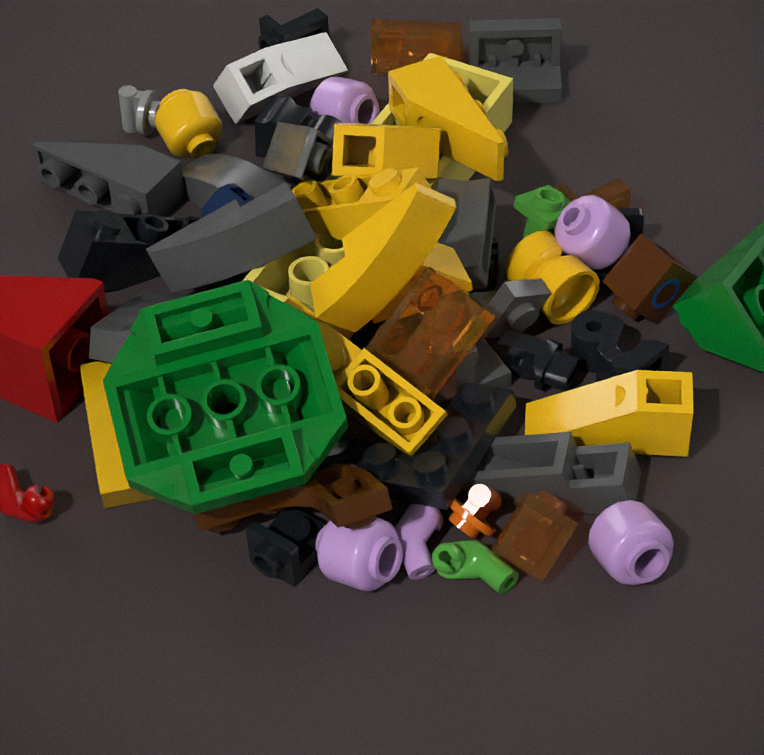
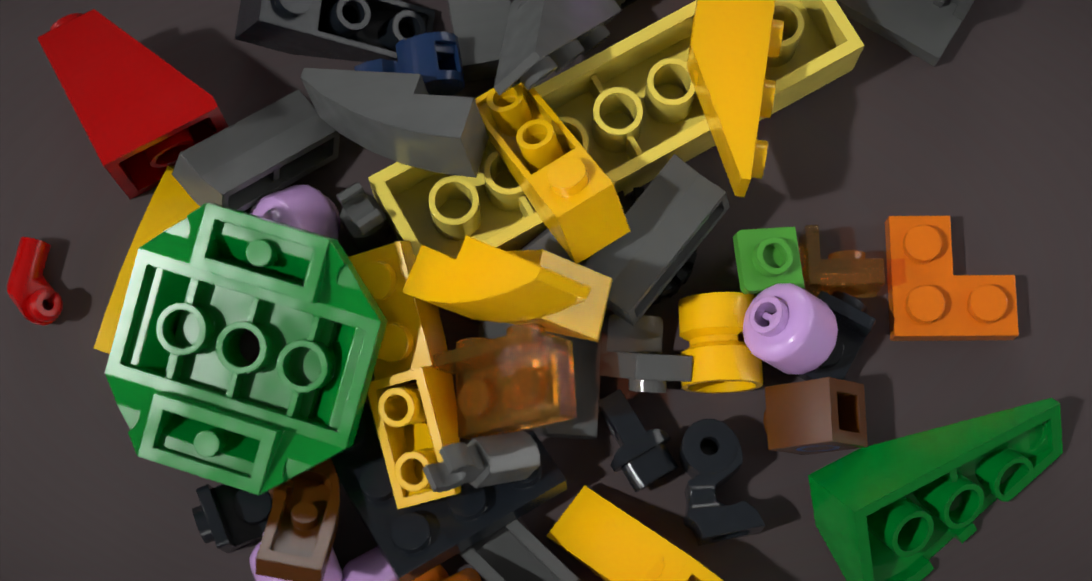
camera: 30 degrees right, 30 degrees up
(375, 147) = (620, 98): yellow slope -> none
(452, 379) = (485, 462): none -> dark grey bar
(672, 203) = (930, 300): none -> orange plate

